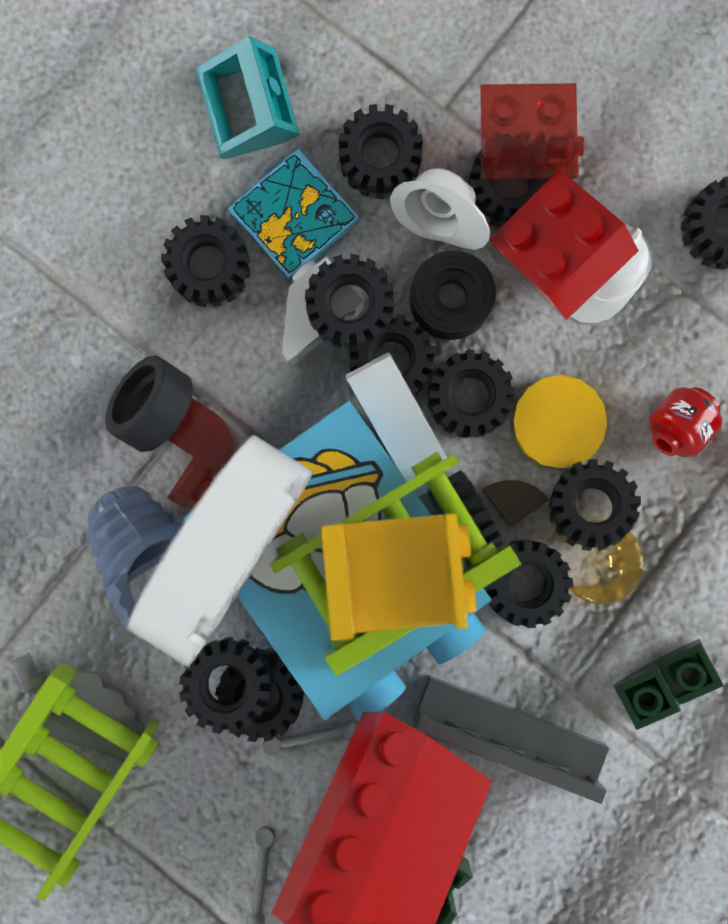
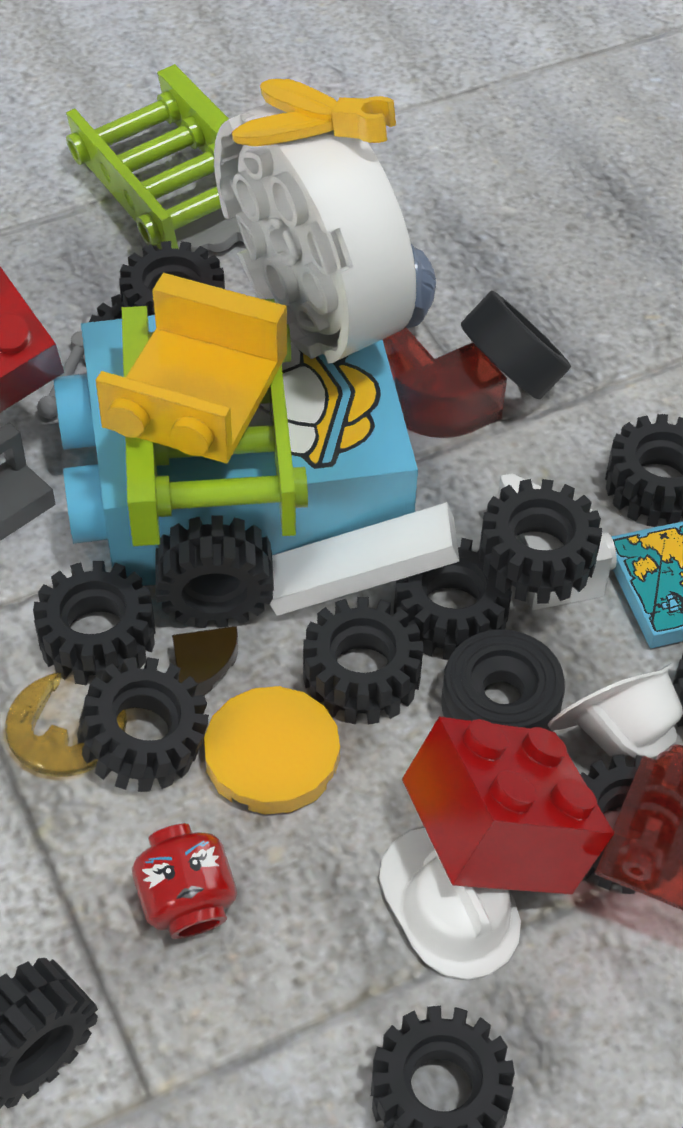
camera: 110 degrees right, 35 degrees down
(199, 554) = (314, 114): none -> yellow piece

